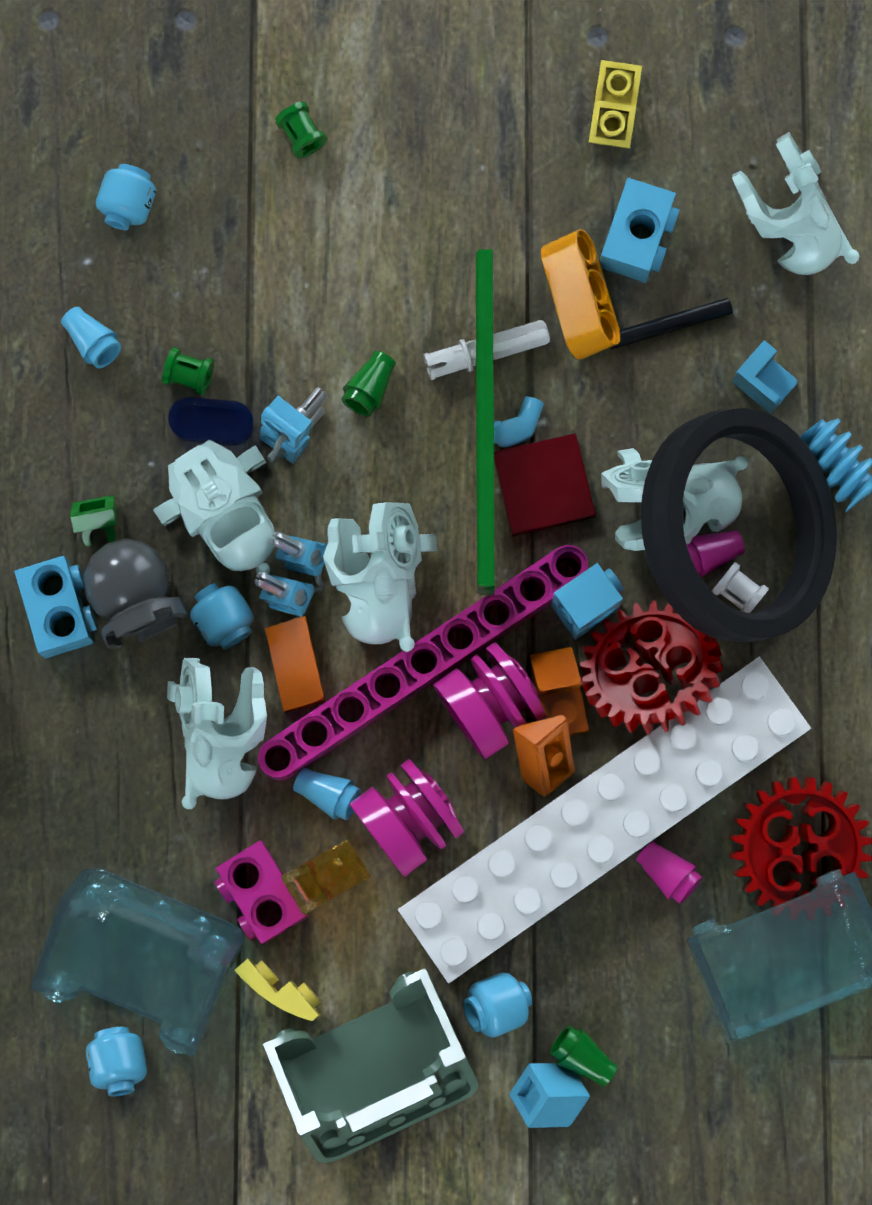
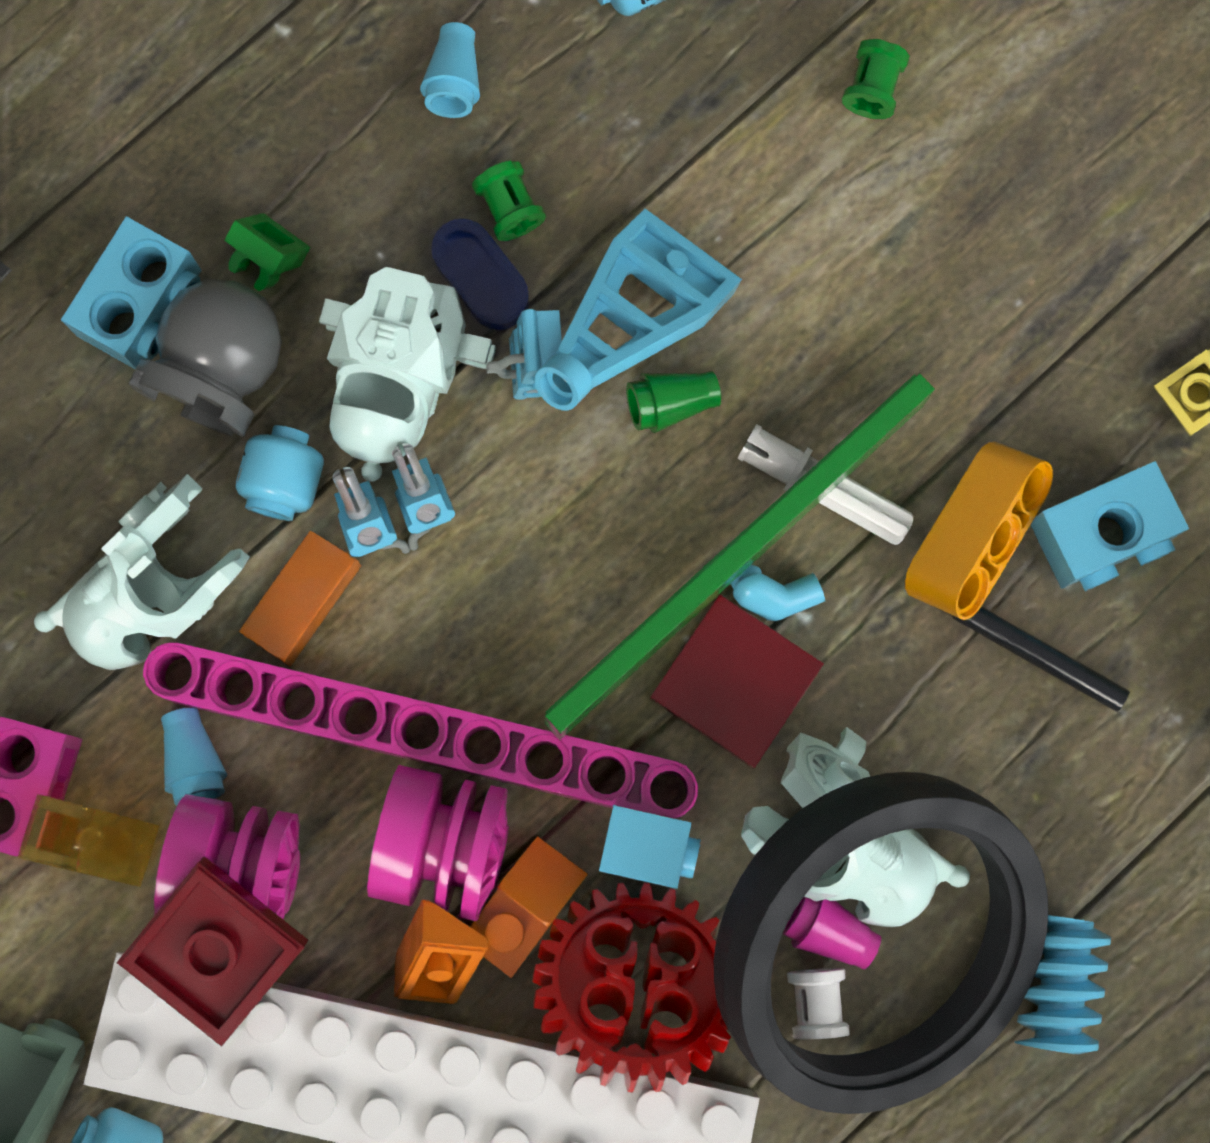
camera: 45 degrees right, 0 degrees up
(303, 322) = (664, 263): none -> medium azure plate
(380, 585) = (471, 590): light aqua helmet -> none
(444, 853) = (212, 951): none -> dark red tile
(764, 378) = (1079, 814): medium azure panel -> none

